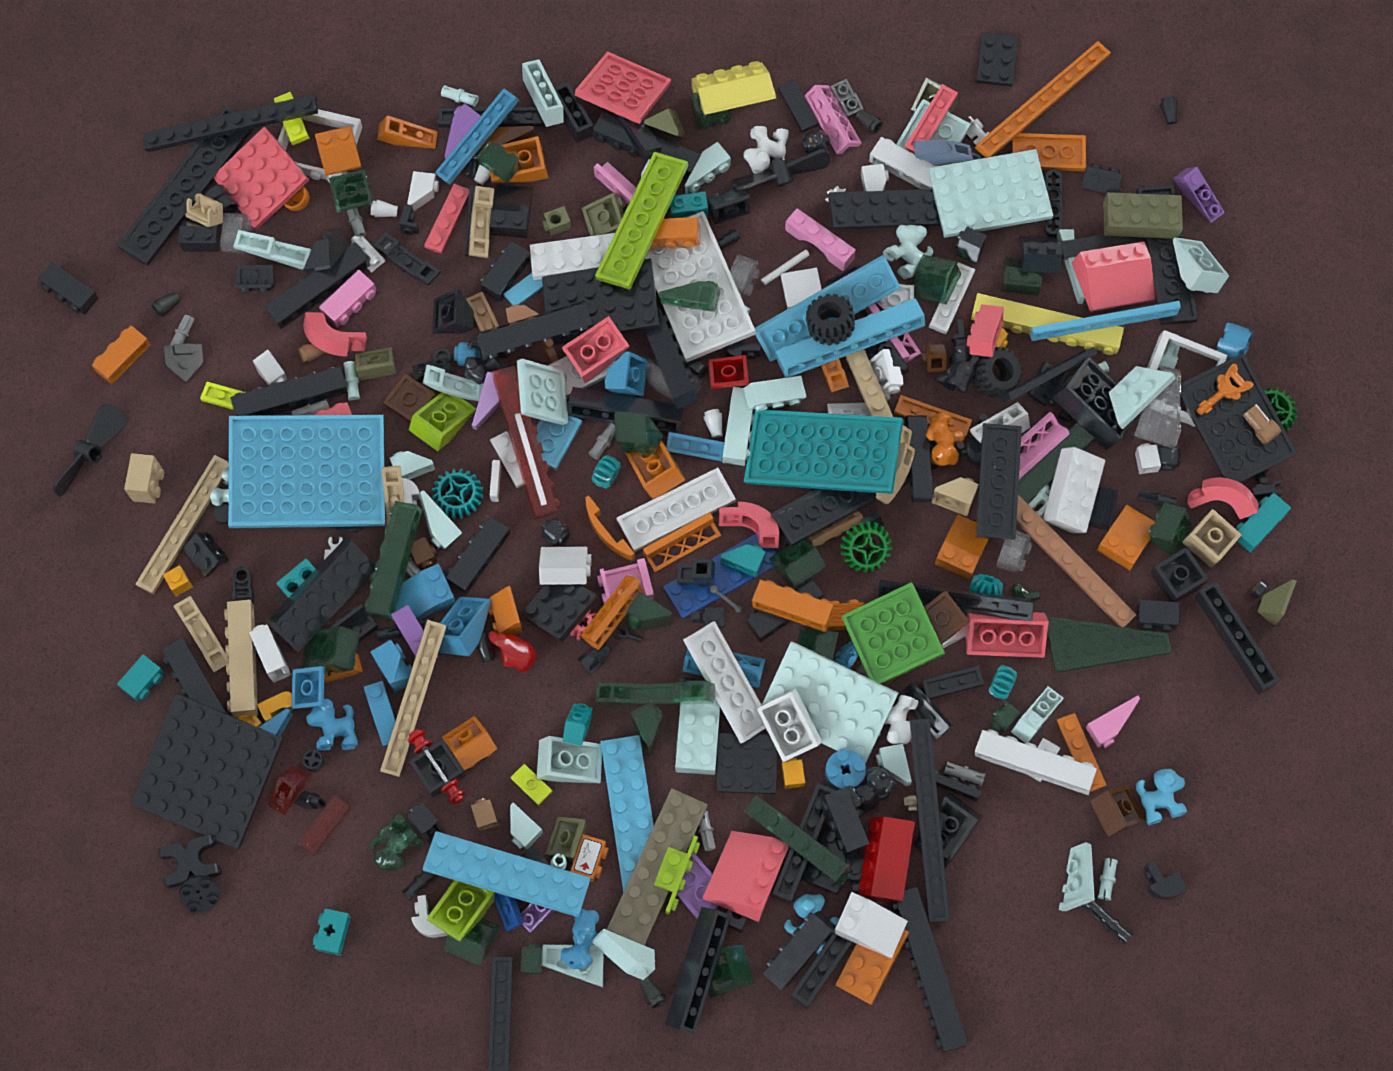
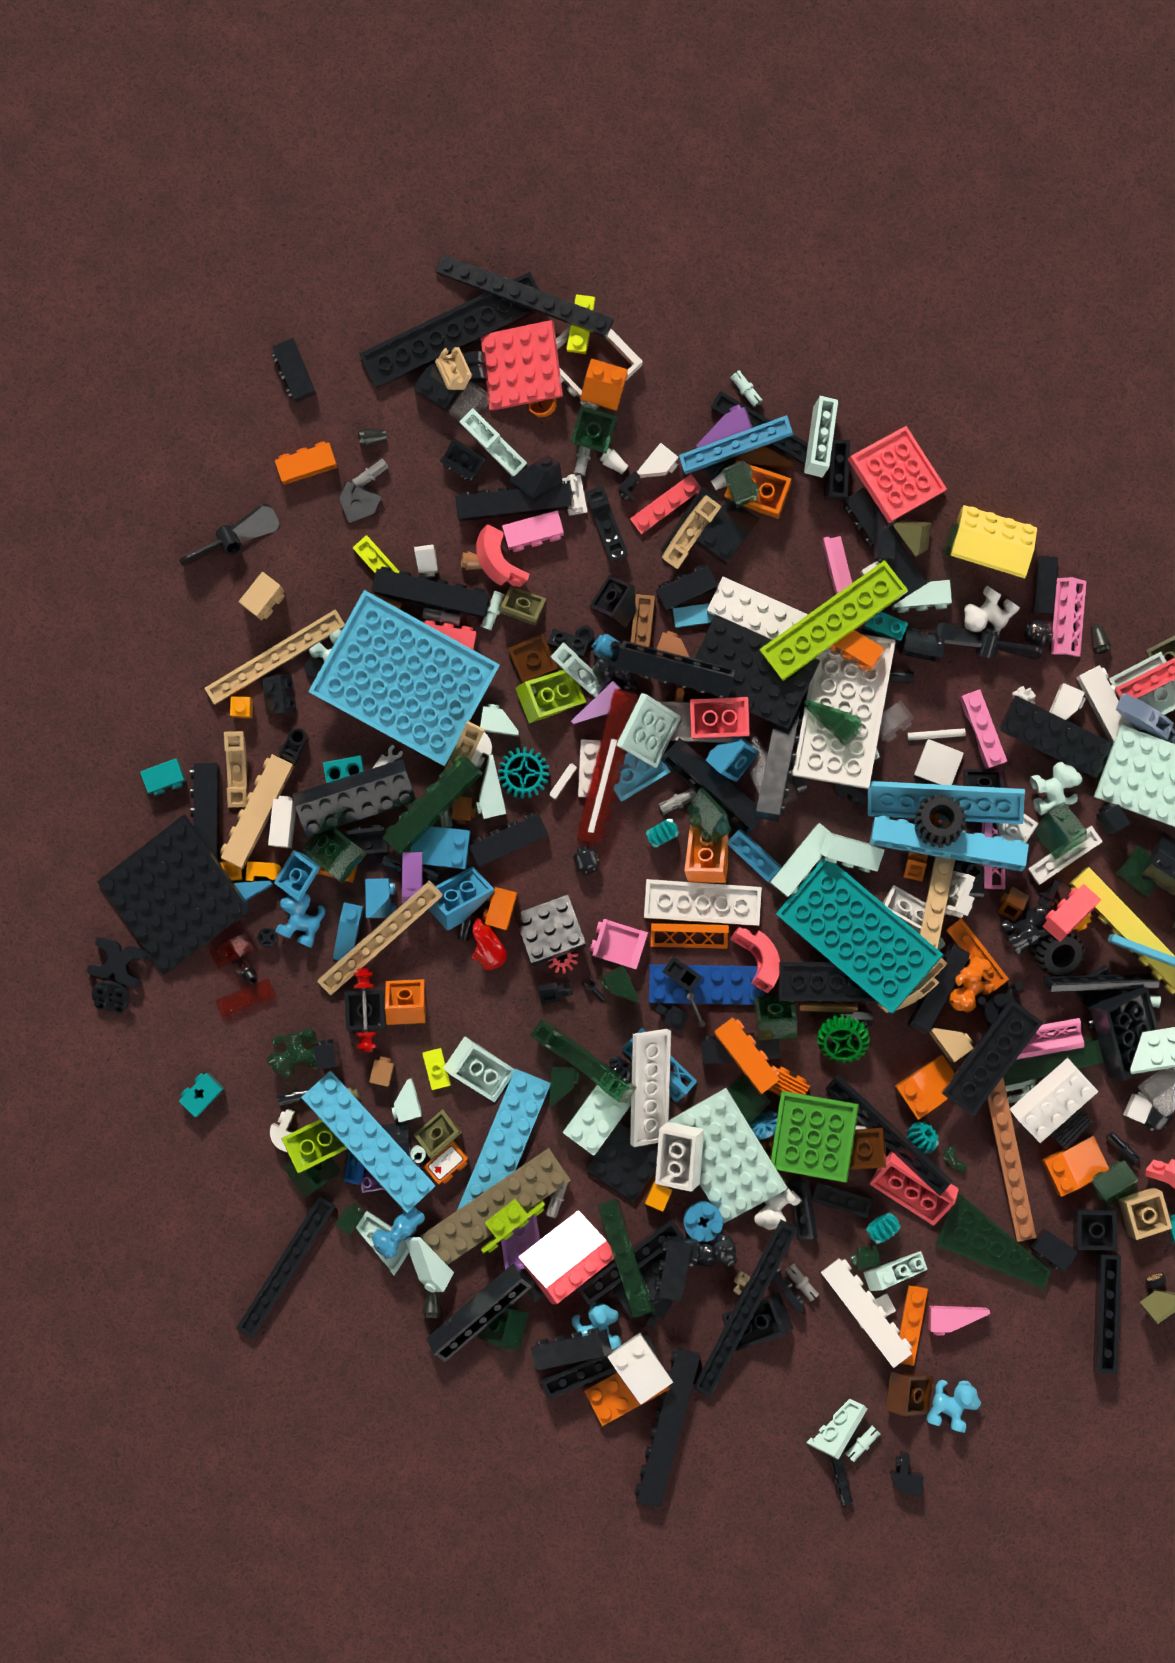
camera: 30 degrees right, 15 degrees up
(405, 133) = (676, 399): orange slope -> none
(557, 214) = (768, 567): olive brick -> none
(564, 565) = (575, 897): white brick -> none
(577, 724) = (503, 1045): teal brick -> none
(604, 215) = (806, 589): olive plate -> none
(610, 610) = (591, 964): orange fence -> none
(620, 548) = (629, 862): orange slope -> none
(714, 422) = (783, 843): white cone -> none
(728, 372) = (822, 809): red slope -> none
(745, 559) = (733, 987): teal slope -> none
(847, 99) = (1094, 604): flat silver slope -> none
(886, 859) = (689, 1319): red slope -> none
(895, 763) = (749, 1238): light aqua slope -> none
(1012, 415) = (1038, 1002): white slope -> none
(1013, 552) = (963, 1123): clear brick -> none

